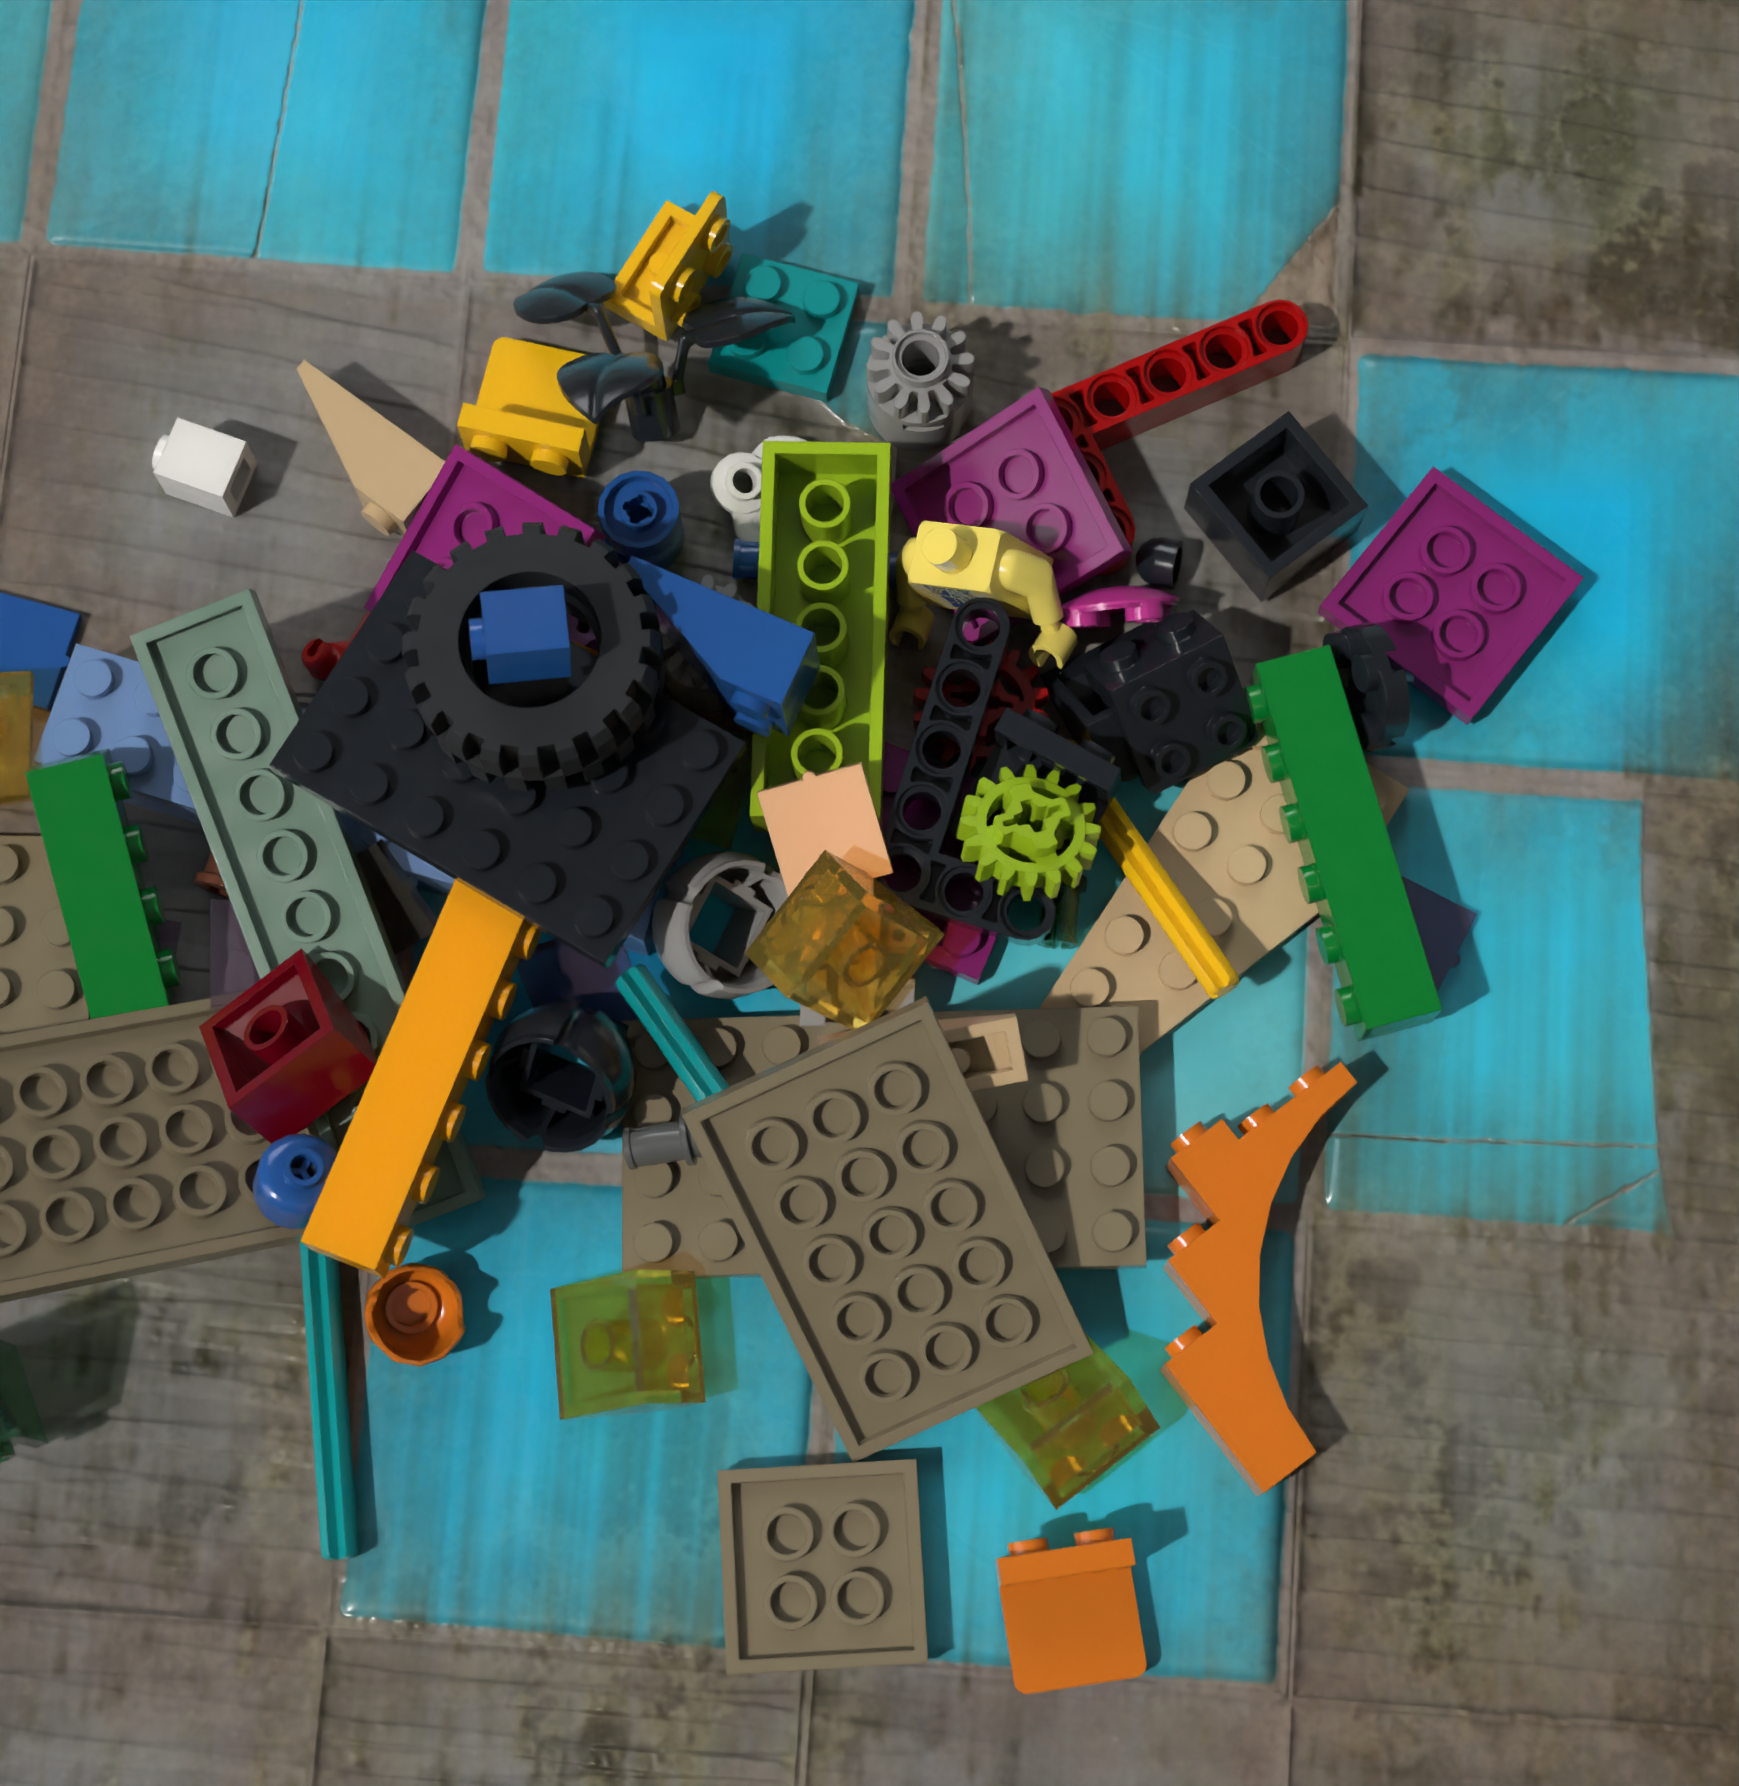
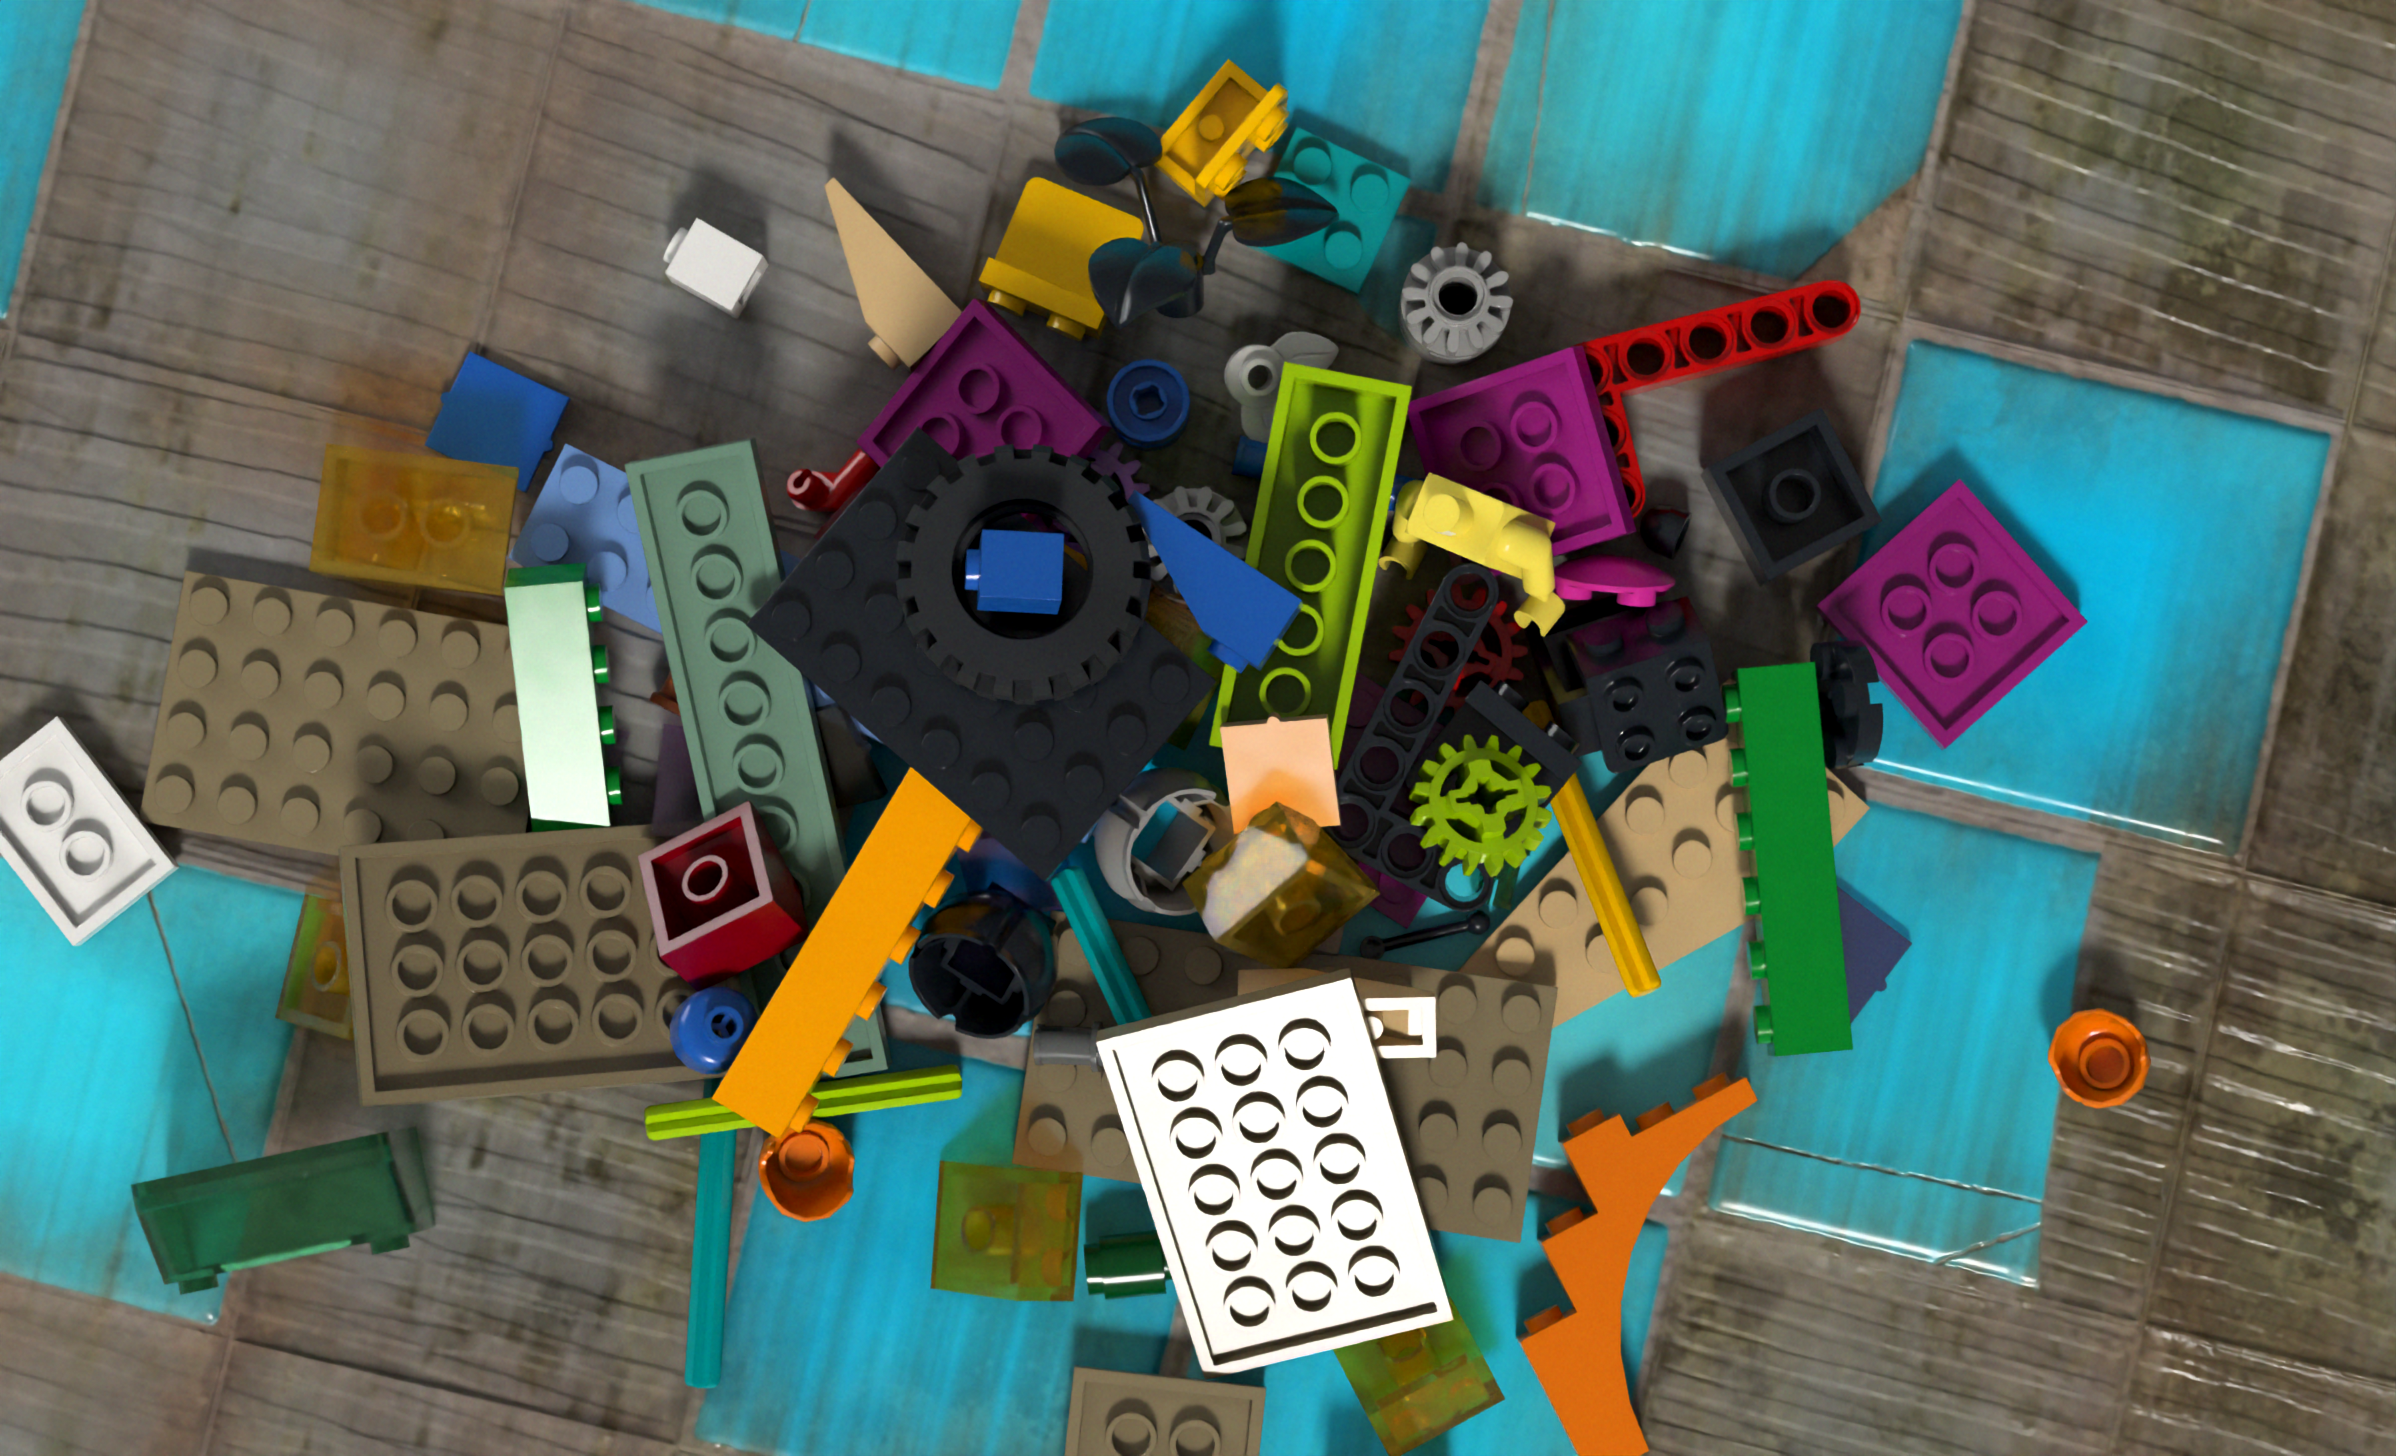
camera: 10 degrees right, 10 degrees up
(429, 1242) = (835, 1098): none -> lime axle
(755, 1359) = (1126, 1265): none -> dark green brick
(1045, 966) = (1476, 922): none -> black hinge
(1685, 987) = (2099, 1058): none -> orange hair

